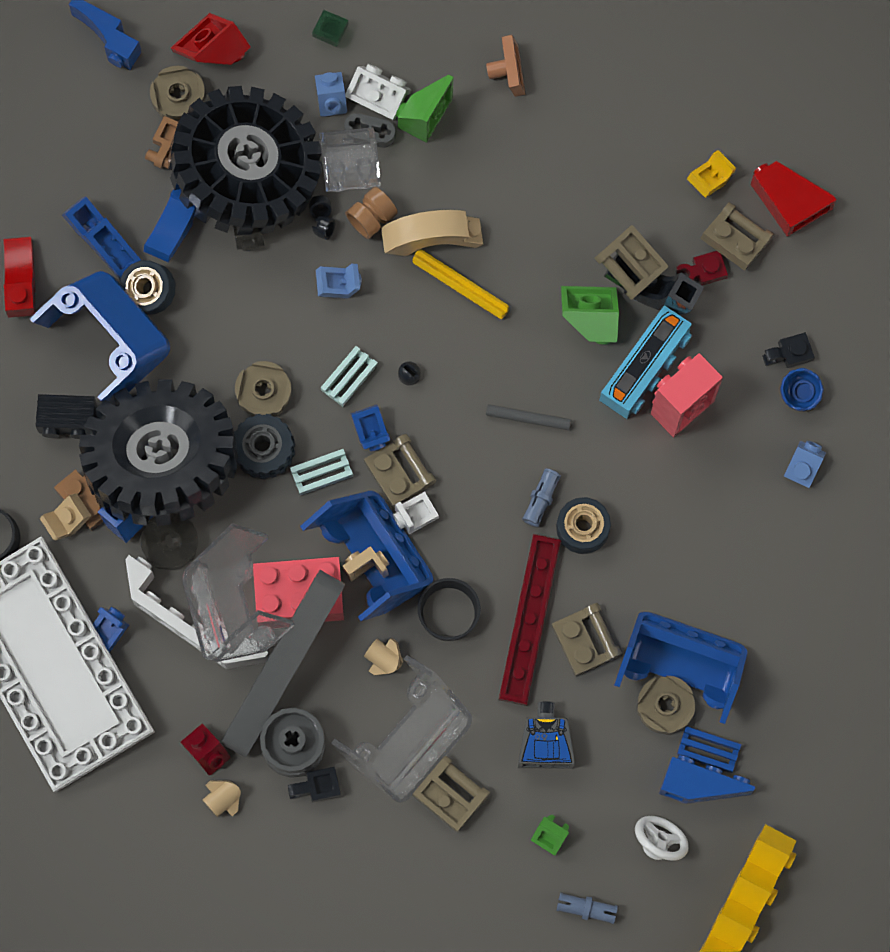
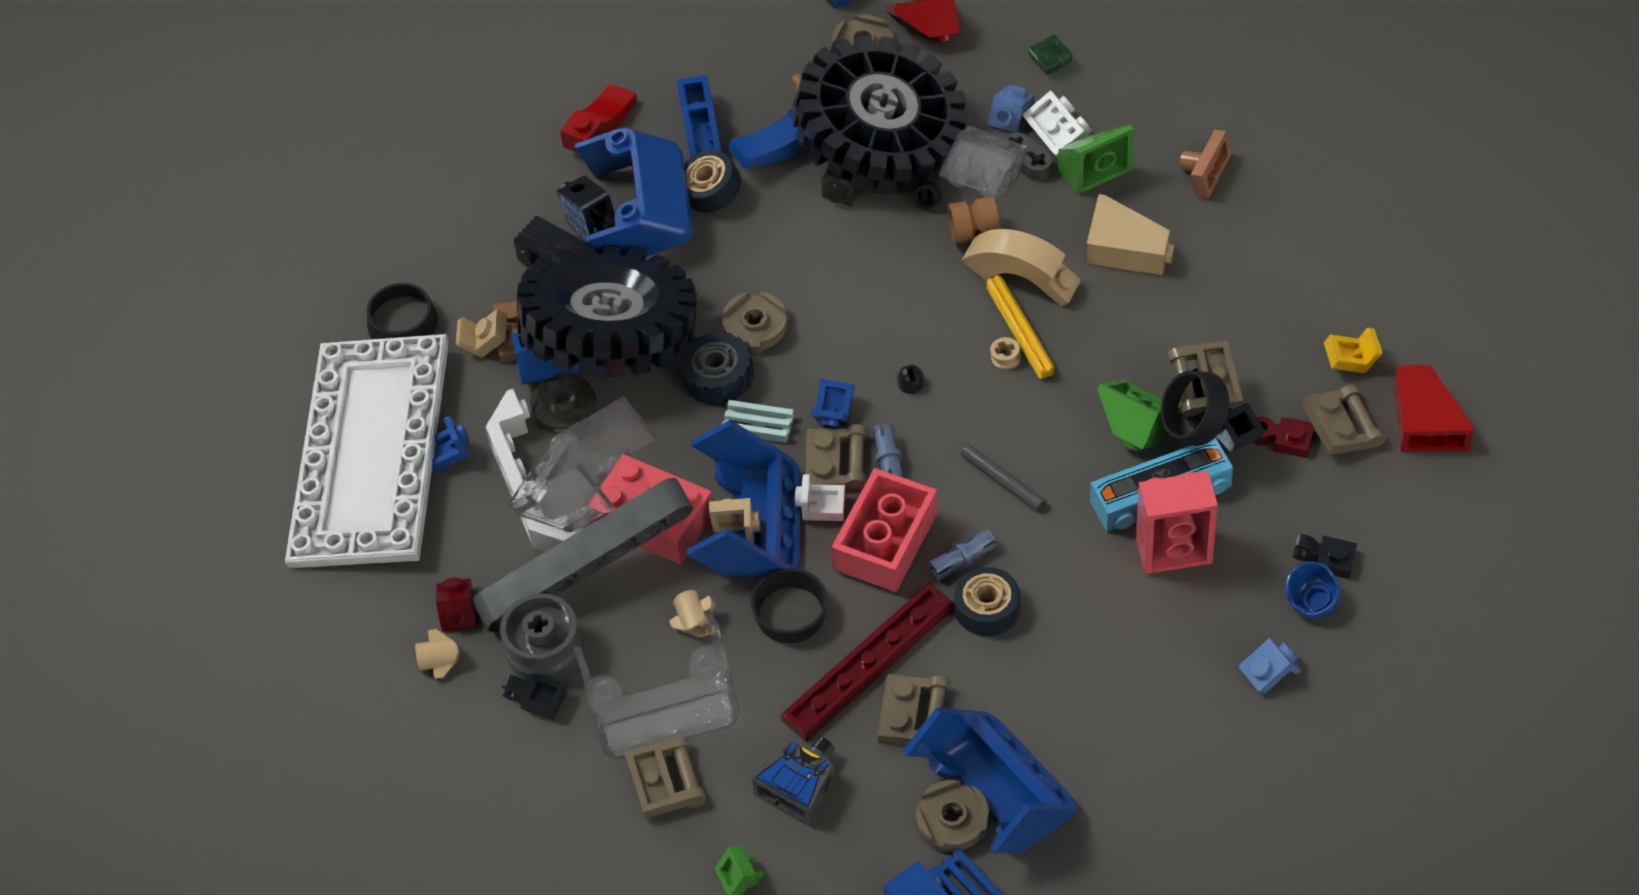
camera: 40 degrees right, 20 degrees down
(73, 367) = (585, 205): none -> black torso
(324, 228) = (923, 220): black hinge -> none
(338, 281) = (896, 264): medium blue bracket -> none
(363, 358) = (846, 348): light aqua tile -> none
(438, 448) = (888, 454): none -> sand blue pin
(463, 303) = (999, 359): none -> tan bush
(480, 512) = (885, 530): none -> coral brick
(492, 166) = (1127, 239): none -> tan slope
(661, 281) = (1215, 413): none -> black tyre

